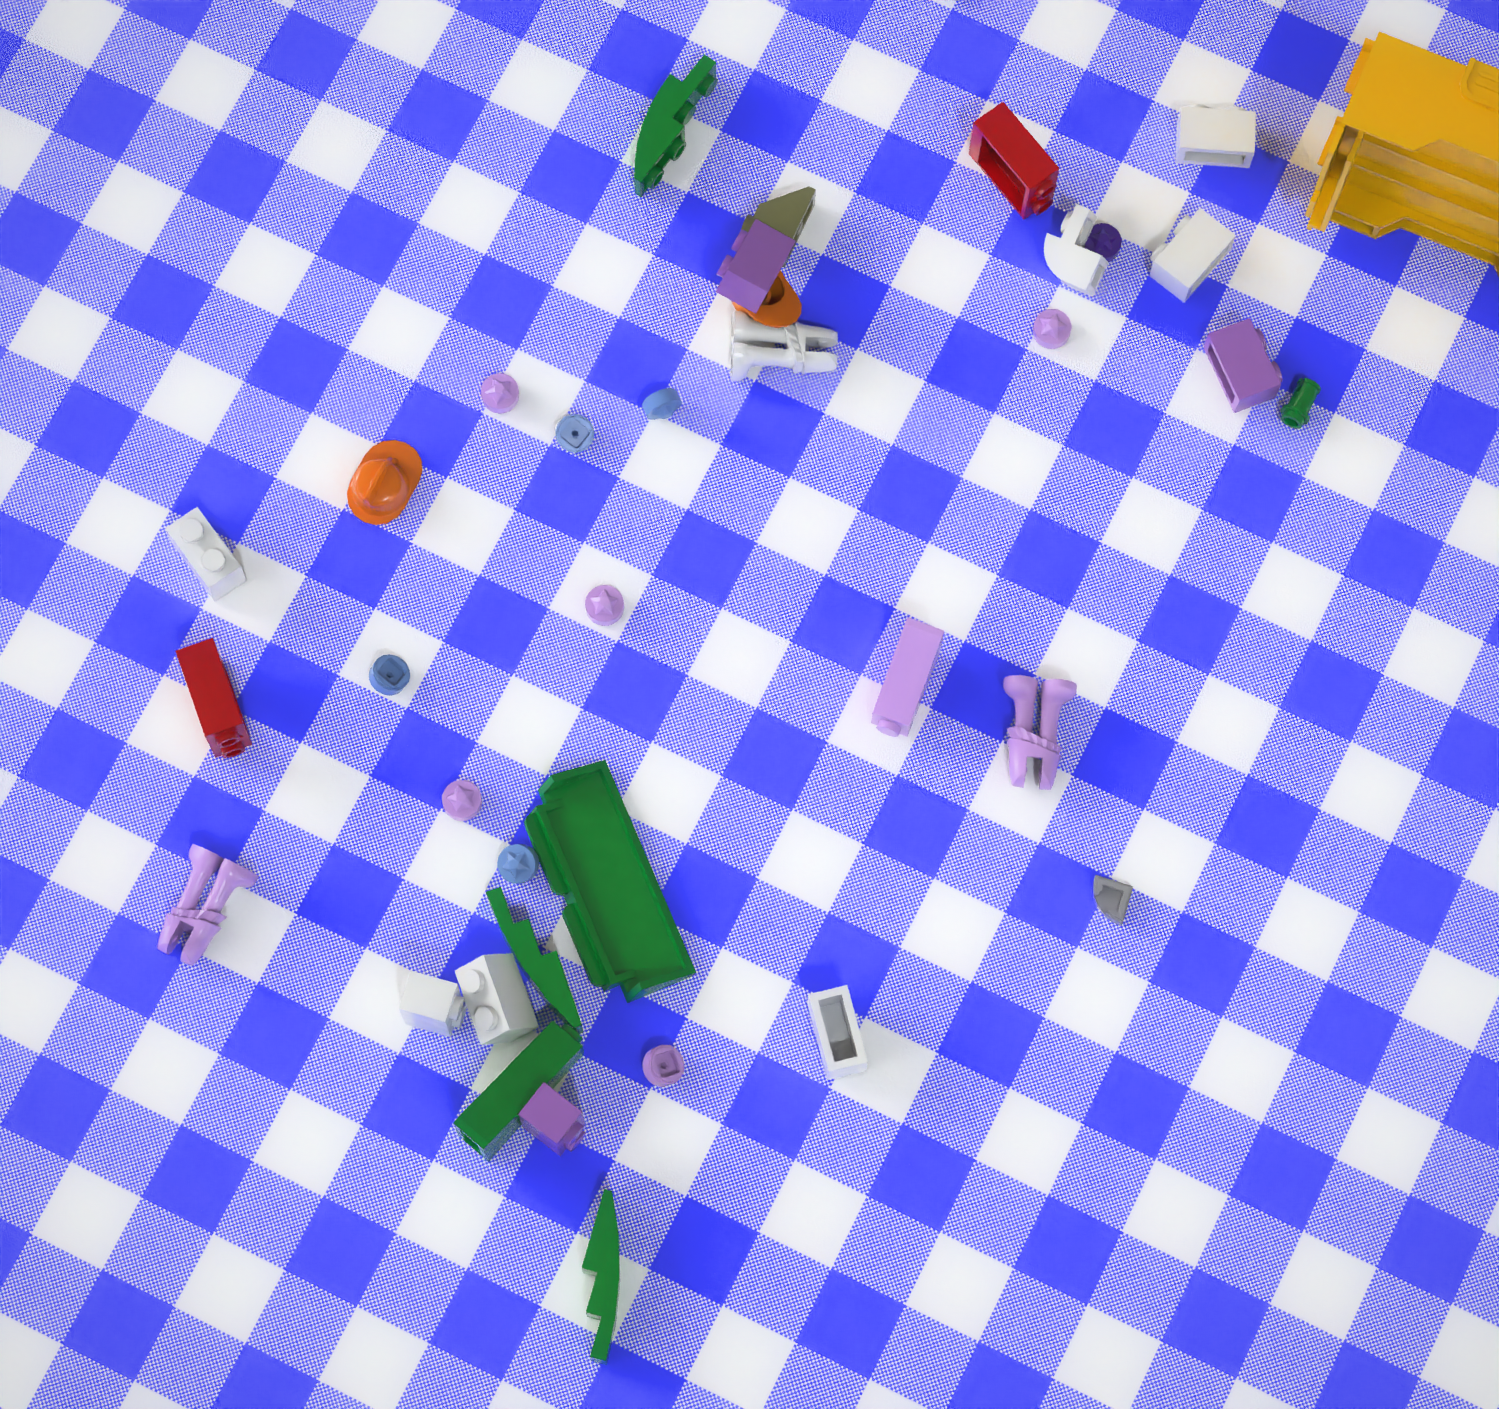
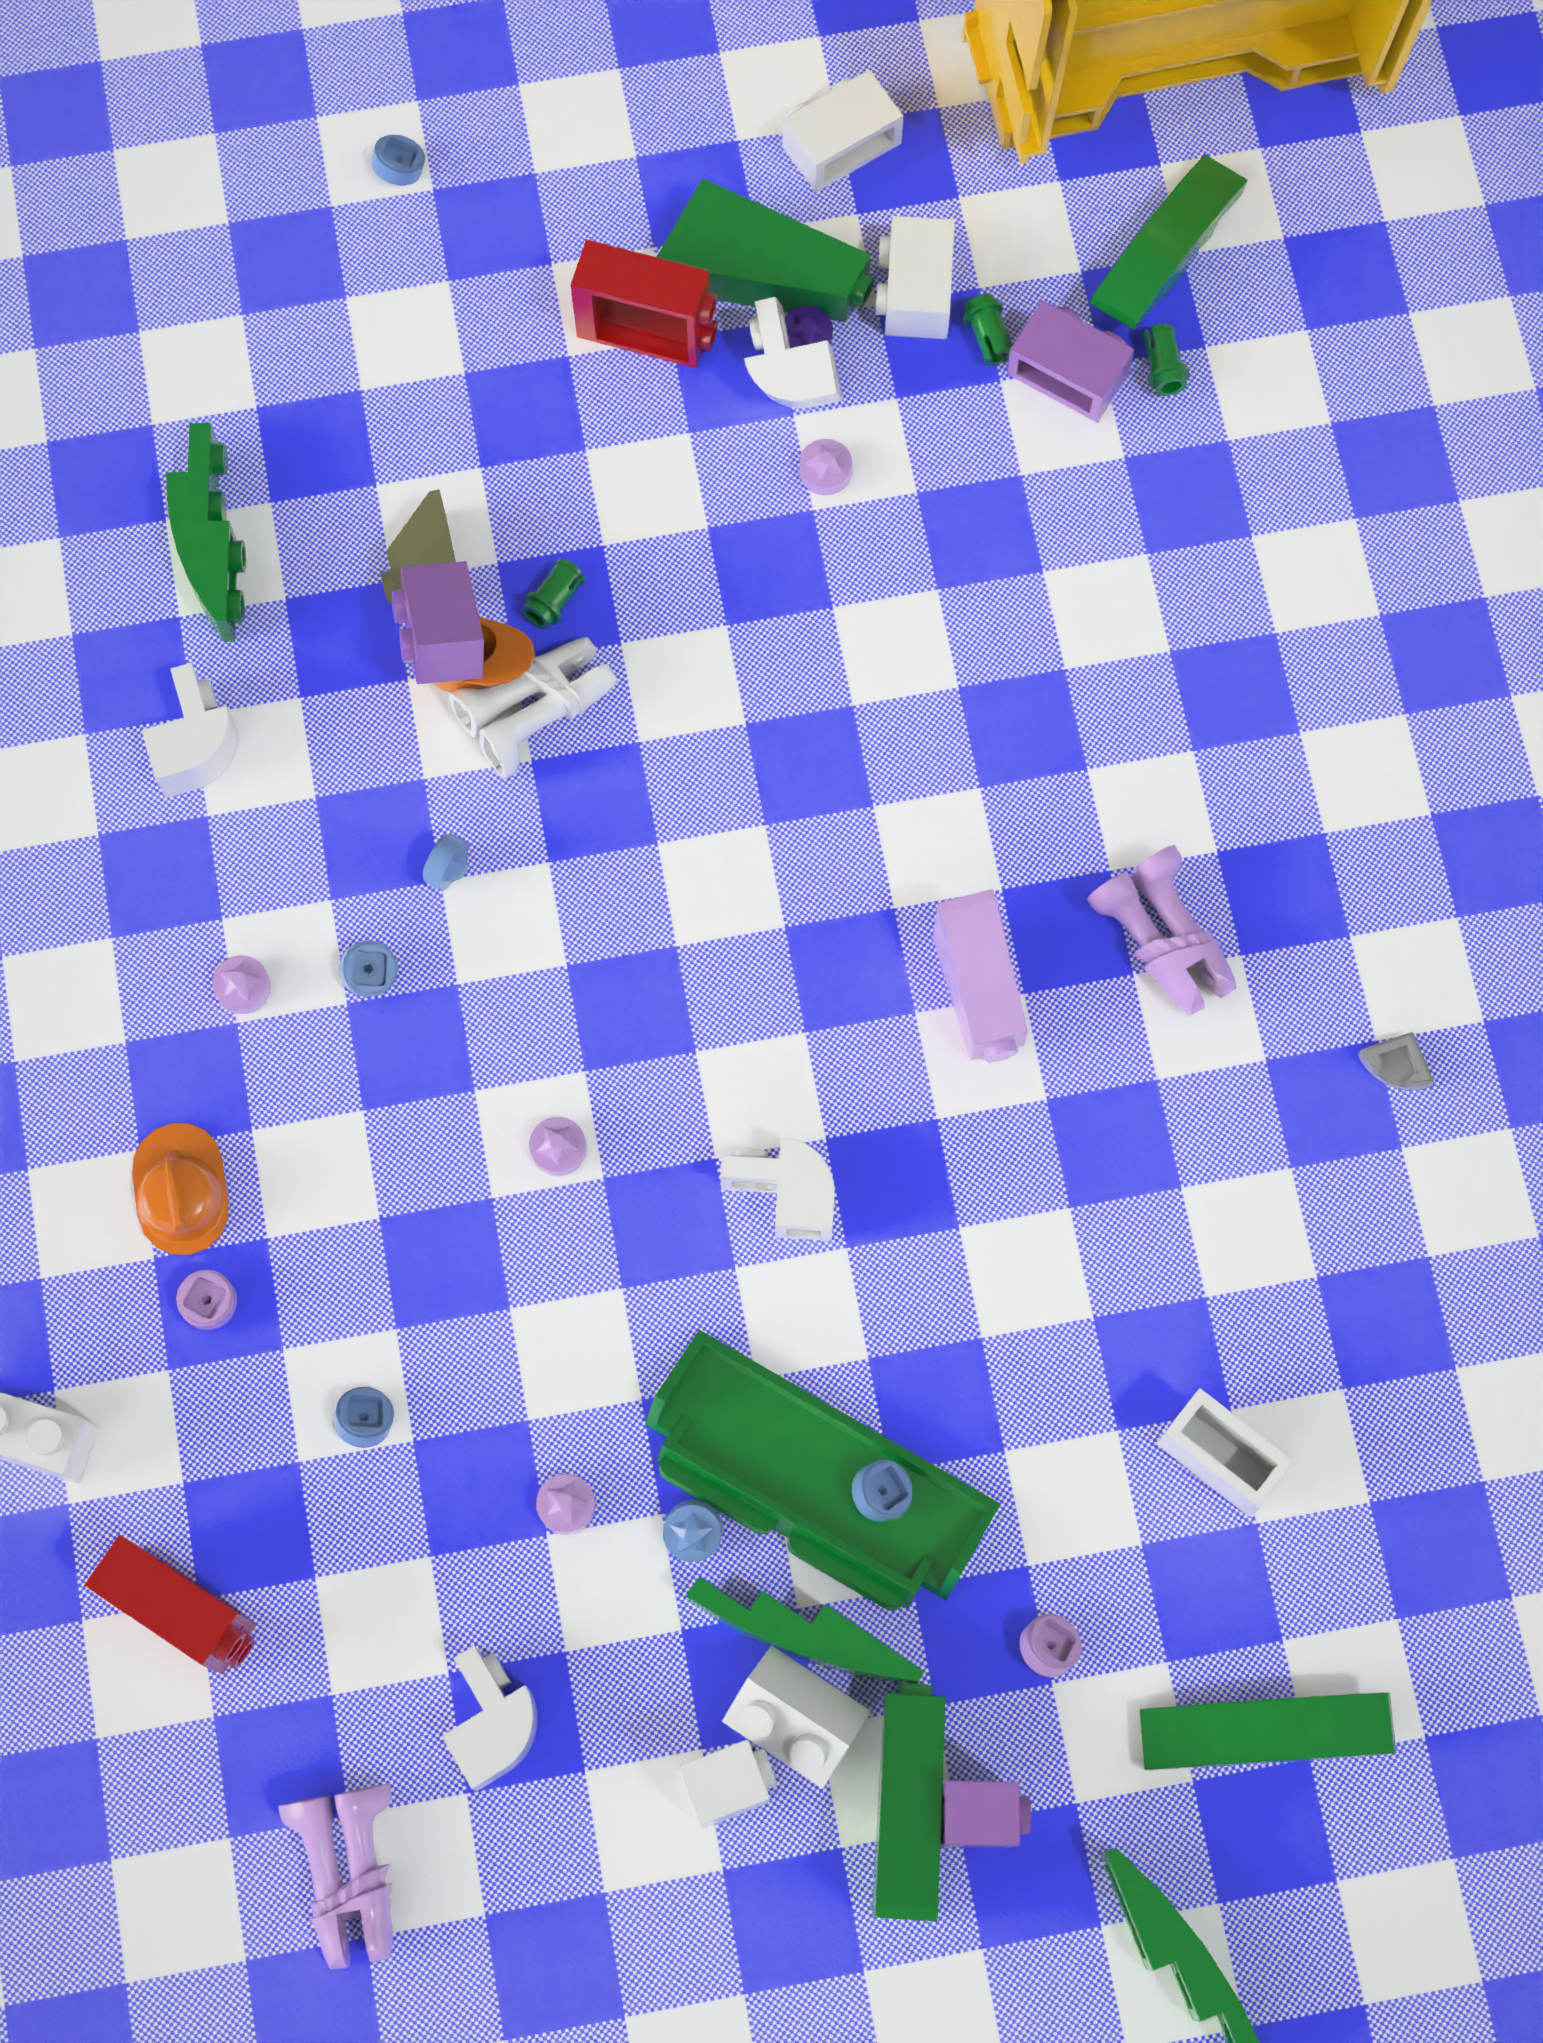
camera: 35 degrees left, 0 degrees up
(337, 892) = (501, 1733): none -> white brick
(353, 551) = (206, 1299): none -> lavender tile
(573, 242) = (196, 747): none -> white brick
(635, 916) = (882, 1490): none -> medium blue tile
(720, 717) = (798, 1178): none -> white brick
(744, 1196) = (1267, 1731): none -> green slope
(837, 294) = (548, 600): none -> green pin
(1108, 180) = (767, 255): none -> green slope
(1211, 312) = (985, 318): none -> green pin
(1357, 334) = (1168, 242): none -> green slope

